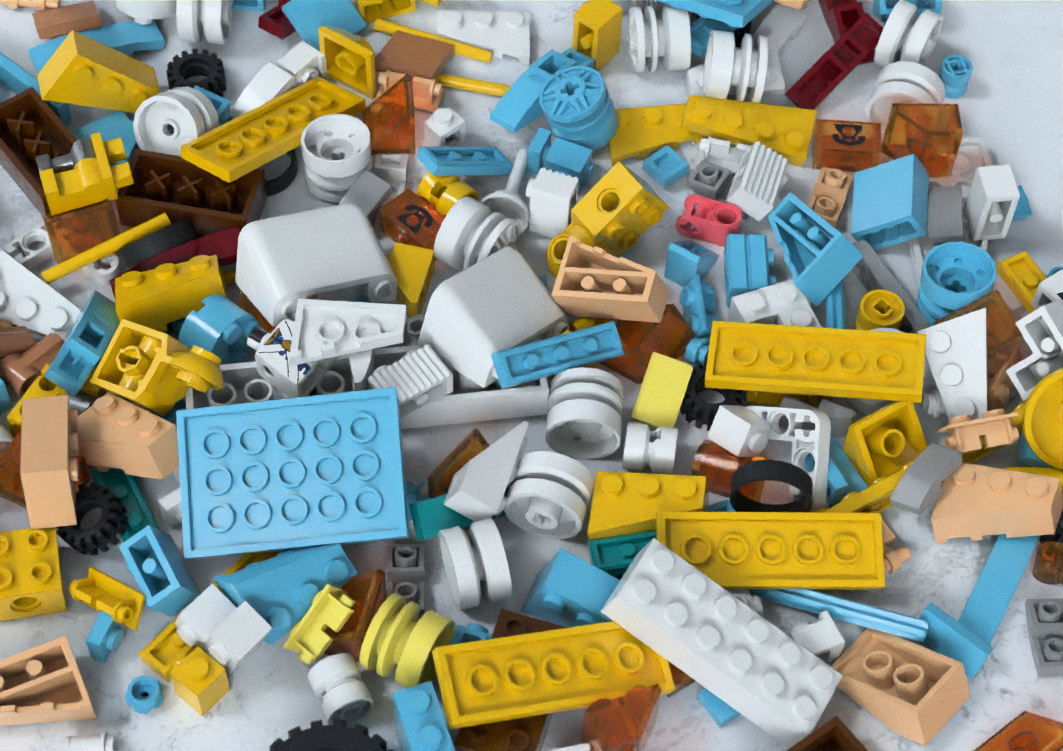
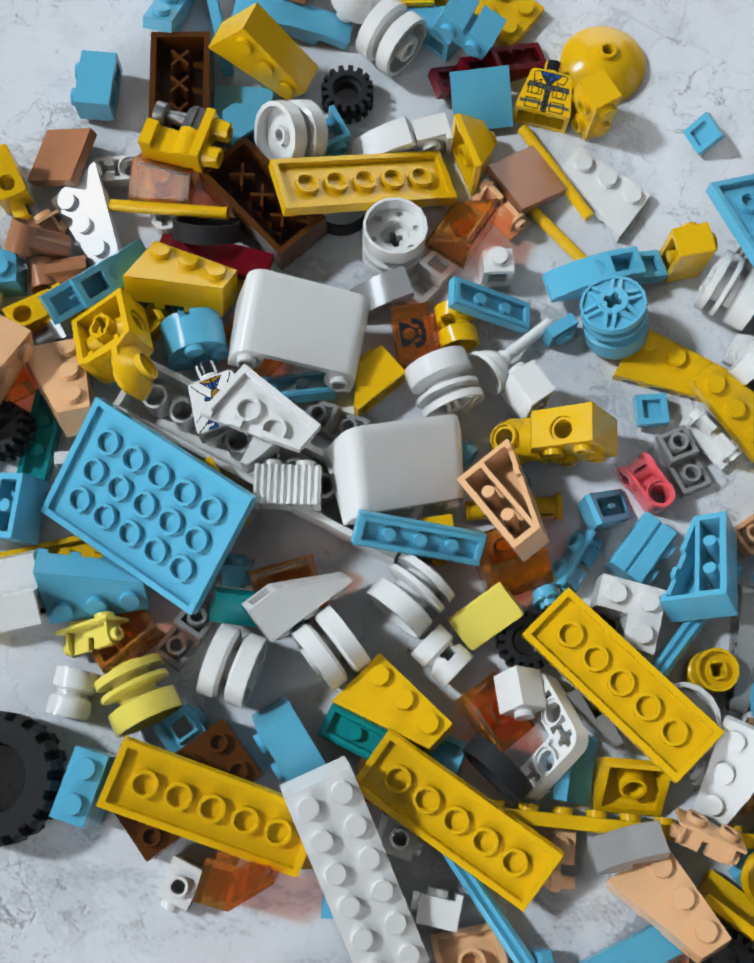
camera: 35 degrees right, 20 degrees up
(570, 160) = (572, 359): medium azure brick -> none
(758, 181) = (710, 480): white brick -> none

